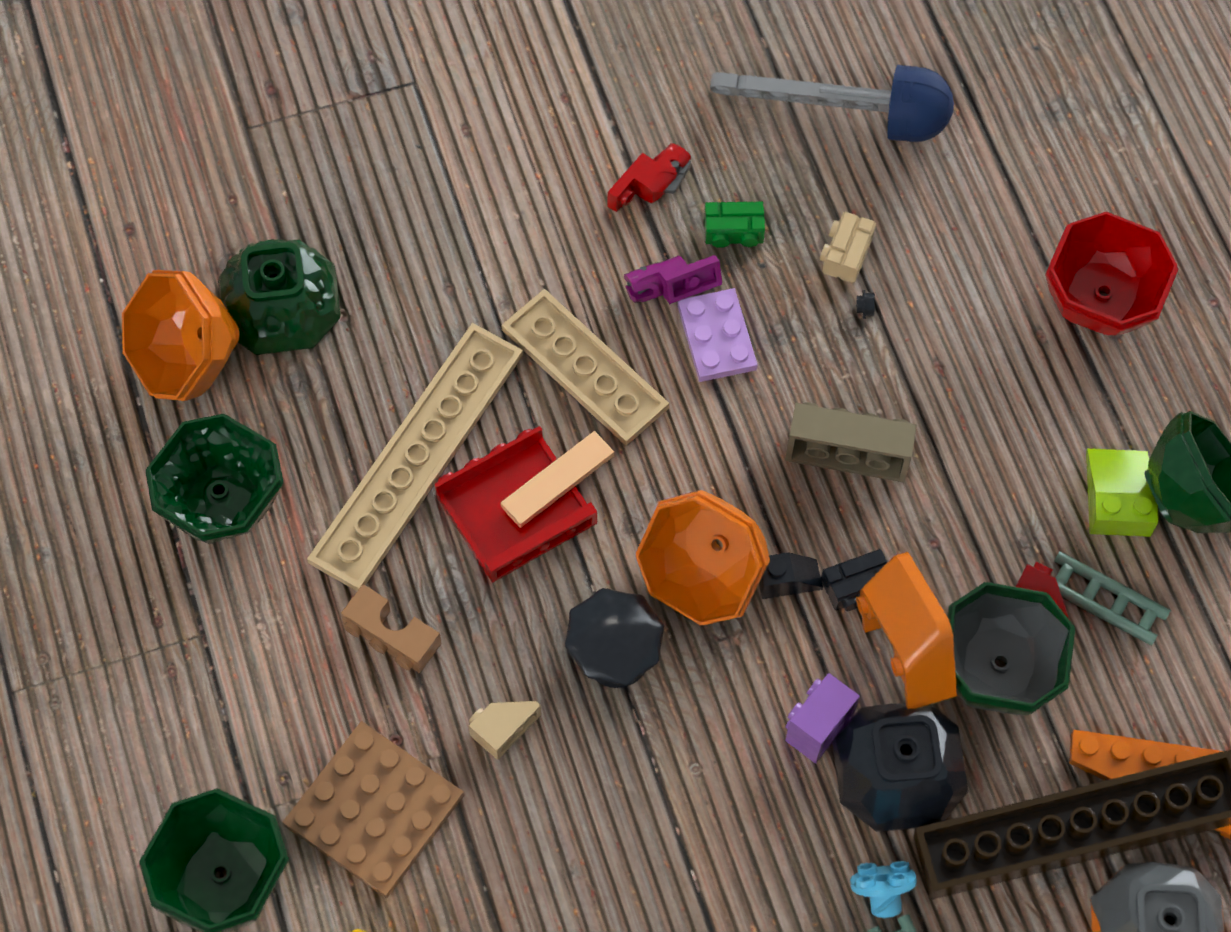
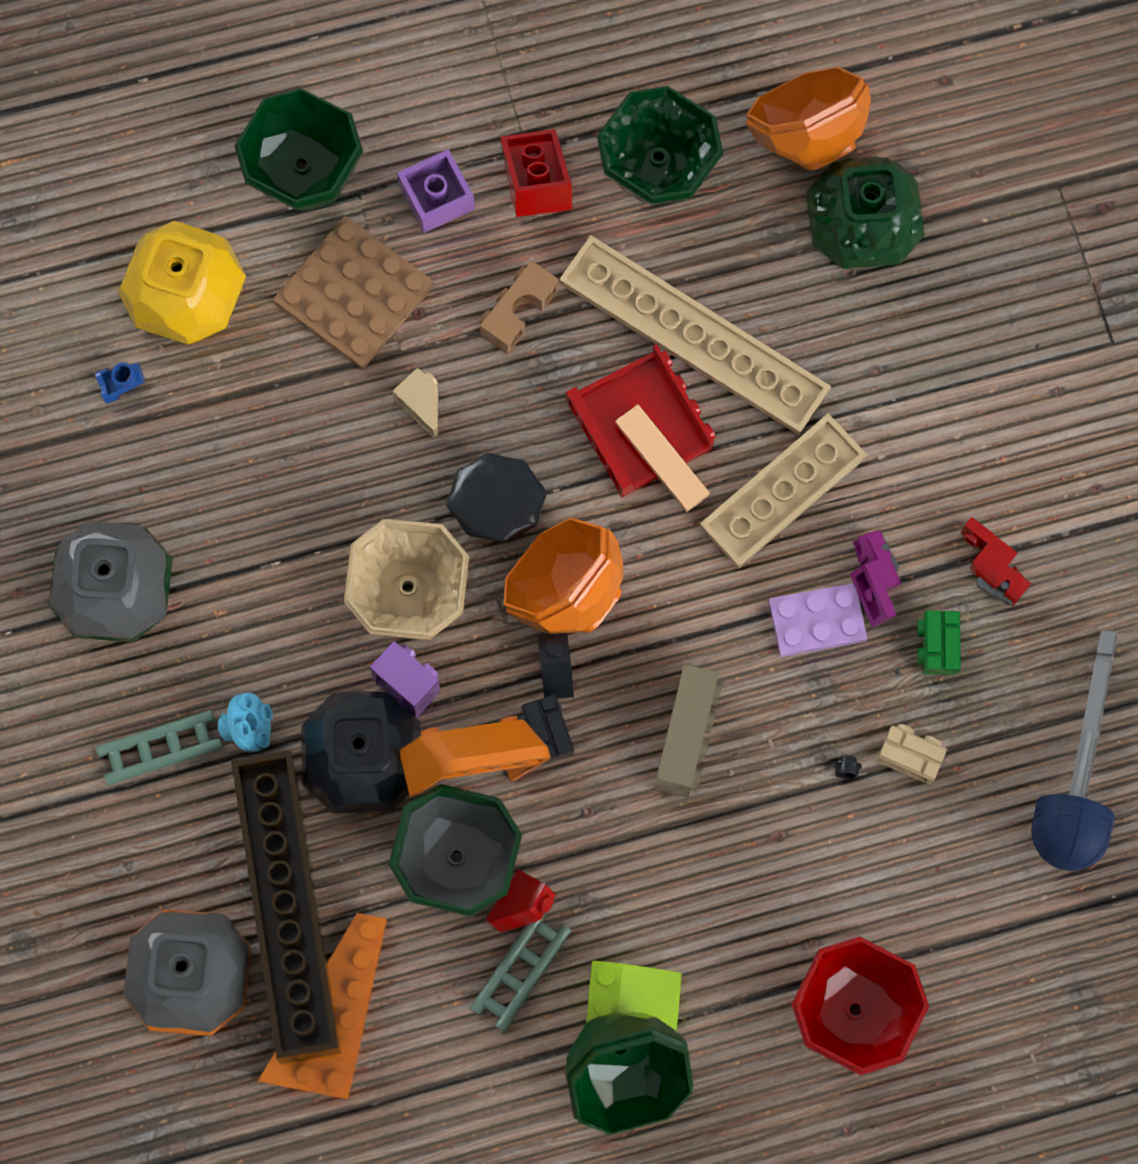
camera: 90 degrees right, 10 degrees up
(232, 618) = (536, 173): none -> red slope
(257, 719) = (436, 191): none -> medium lavender brick
(726, 690) = (401, 555): none -> tan rock

